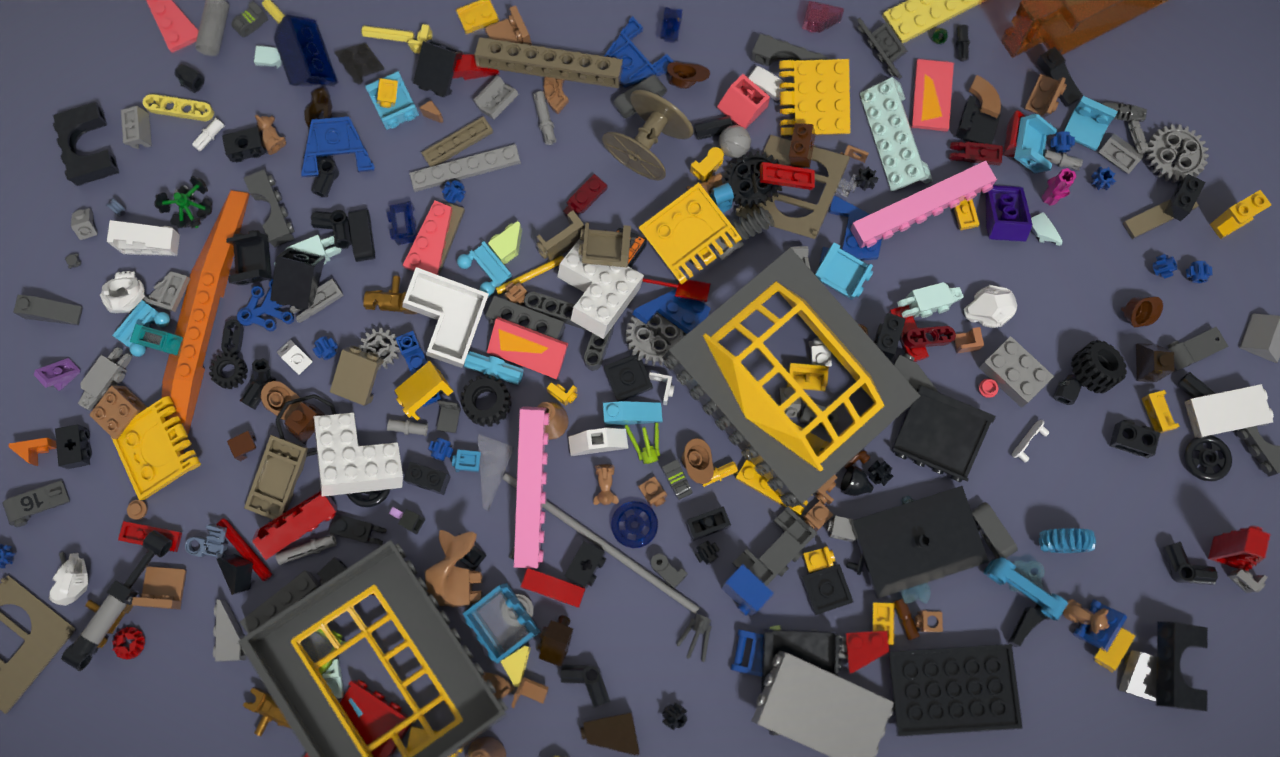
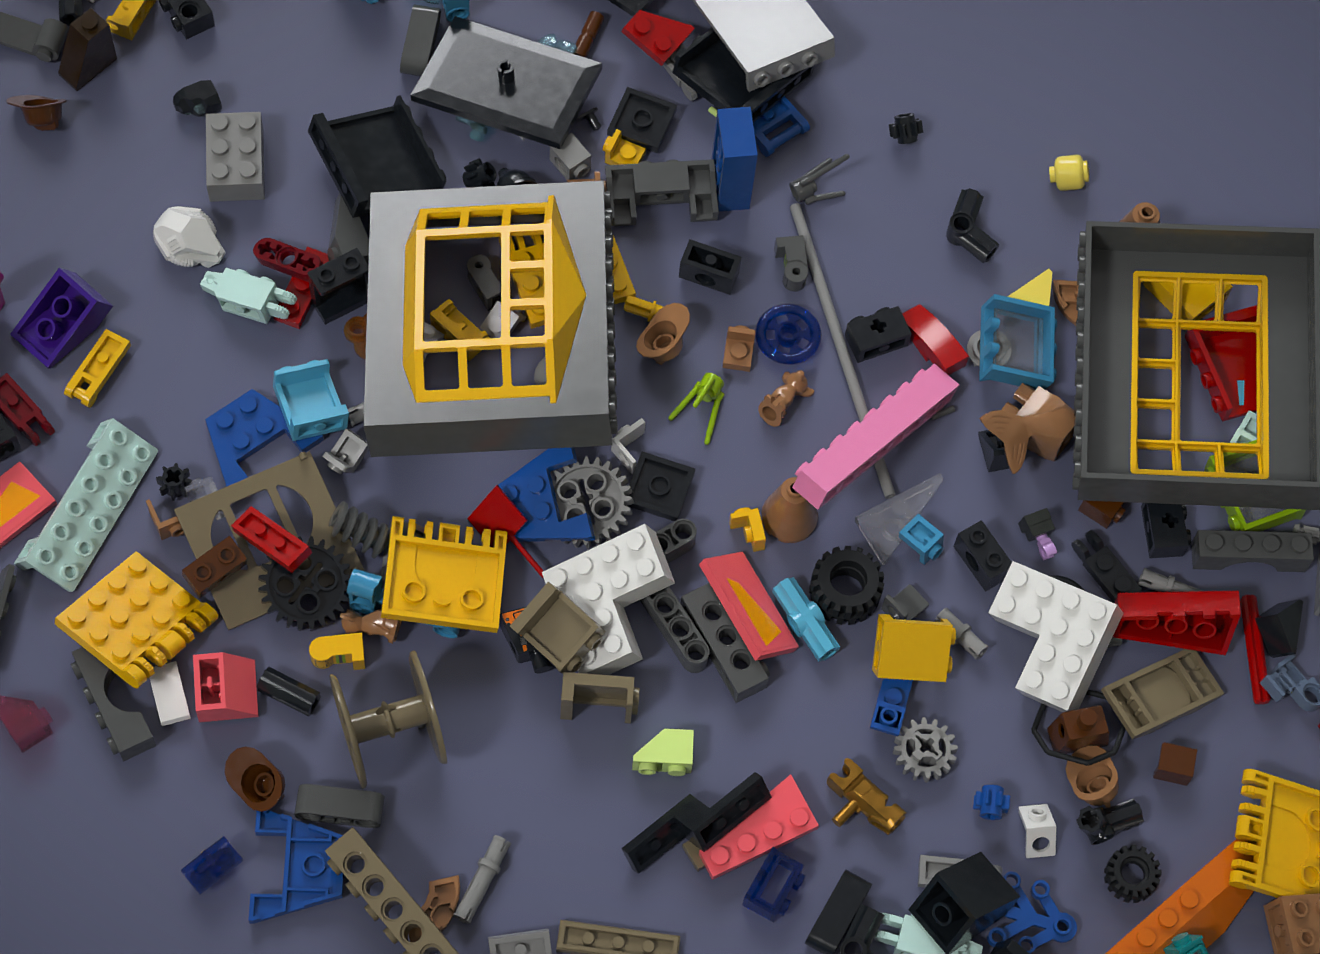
camera: 150 degrees left, 10 degrees down
(232, 338) = (1103, 920): black beam -> none
(356, 375) = (978, 729): dark tan panel -> none
(440, 449) = (942, 575): blue gear -> none
(453, 191) = (678, 871): blue gear -> none
(455, 308) = (801, 711): white piece -> none
(462, 218) = (696, 822): none -> black bracket
(465, 168) = (637, 900): light grey plate -> none
(489, 264) = (708, 745): medium azure gear -> none
(515, 293) = (708, 682): medium nougat gear -> none
(531, 274) = (682, 700): yellow bar -> none
(531, 690) = (1034, 263): medium nougat bracket -> none
(555, 641) = (973, 278): dark brown brick -> none
(586, 195) = (520, 739): dark red hinge -> none
(598, 441) = (756, 442): white slope -> none
(612, 733) = (983, 163): dark brown slope -> none
(631, 413) = (691, 446): medium azure slope -> none
(677, 479) = (701, 340): dark grey leg -> none
(707, 552) = (736, 242): black gear -> none
(735, 141) = (283, 645): light grey piece -> none
(884, 619) = (612, 47): yellow hinge -> none
(922, 624) = (574, 18): medium nougat bracket -> none
(923, 204) = (148, 391): bright pink brick -> none
(969, 341) = (248, 225): nougat panel -> none
(988, 388) = (278, 168): coral plate -> none
(1037, 427) = (293, 91): white piece -> none
(1044, 229) = (39, 269): light aqua slope -> none
(1098, 366) = (149, 87): black tyre -> none

